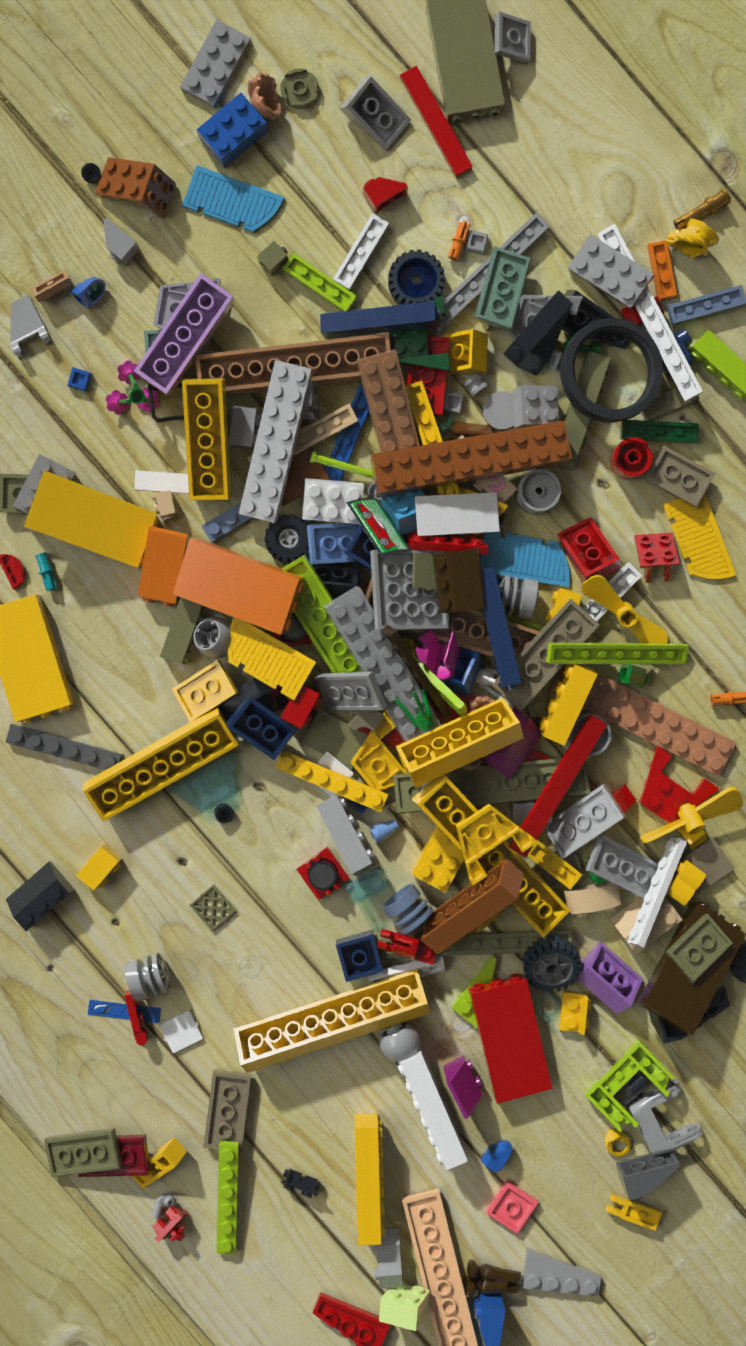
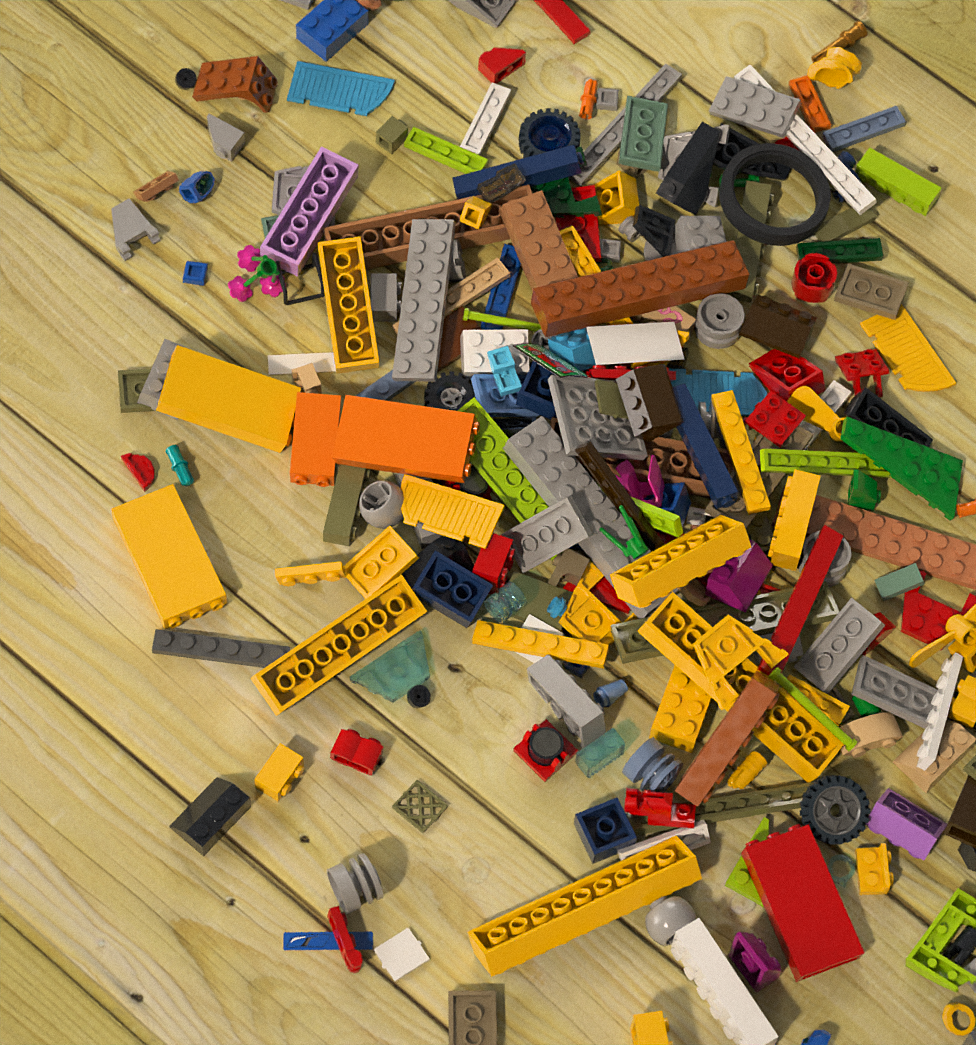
camera: 15 degrees left, 25 degrees down
(145, 693) = (310, 573): none -> yellow plate
(165, 857) = (356, 751): none -> red brick
(306, 743) = (503, 603): none -> clear light blue wheel
(334, 358) = (475, 212): none -> yellow brick
(336, 524) = (504, 371): none -> medium azure slope
(350, 751) = (557, 607): none -> dark azure plate
(362, 331) = (502, 184): none -> clear smoke slope
(496, 392) = (655, 228): none -> black wing
(523, 859) = (813, 709): none -> lime bar
(531, 636) = (740, 452): none -> yellow plate
(567, 606) = (774, 419): none -> red plate
(589, 505) = (778, 326): none -> dark brown slope
(647, 762) = (899, 582): none -> sand green tile
(662, 610) = (875, 412): none -> black wedge
(682, 658) = (912, 465): none -> green wing

